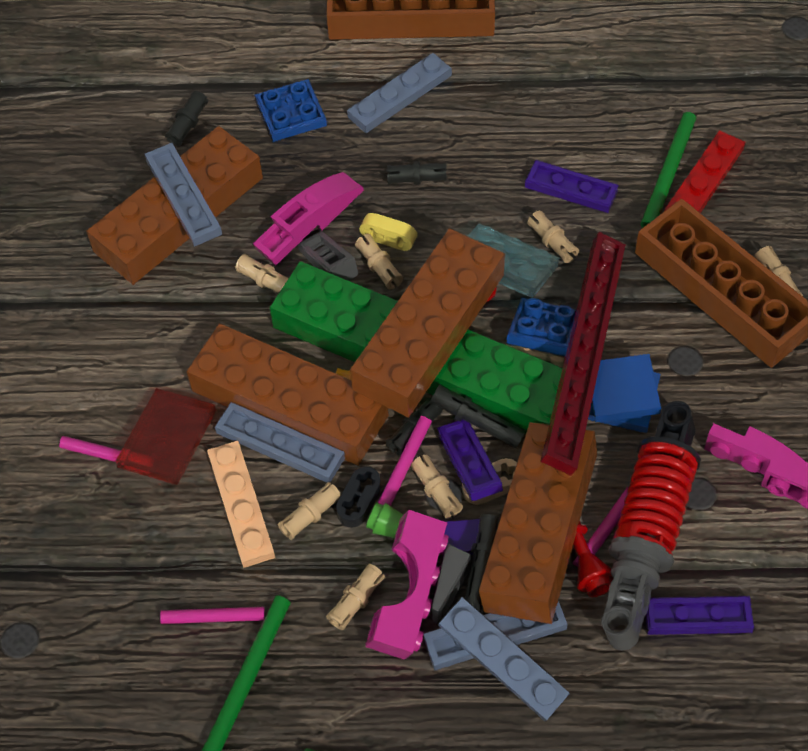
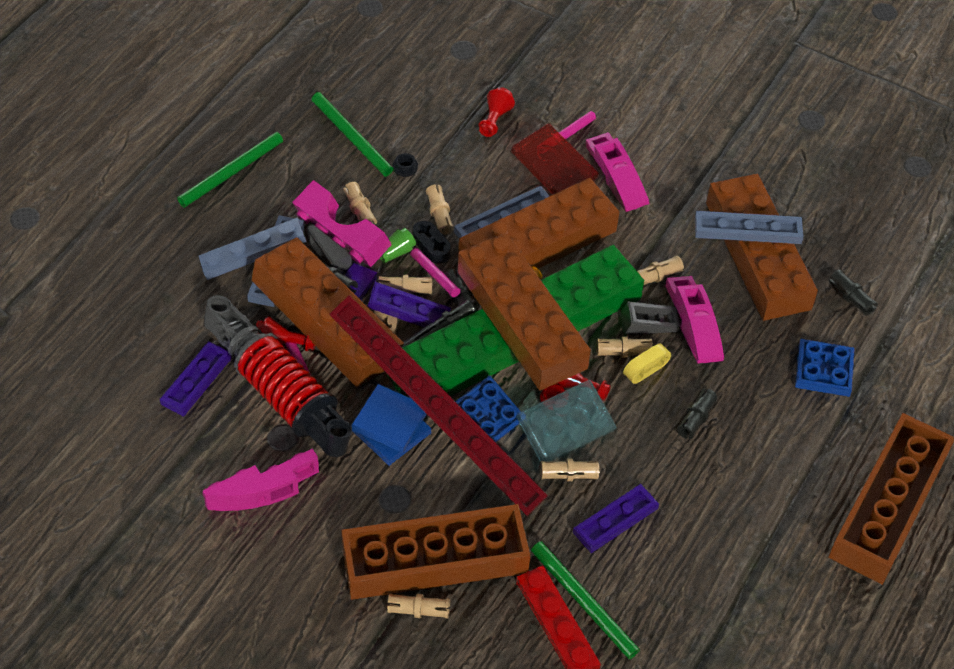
camera: 115 degrees right, 5 degrees down
(104, 538) = (499, 102): none -> red piece
(144, 365) = (618, 170): none -> dark pink slope
(212, 615) = (406, 135): dark pink bar -> none
(241, 504) = (474, 181): light nougat plate -> none
(260, 577) = (405, 165): none -> black plate
(399, 93) = (799, 452): sand blue plate -> none

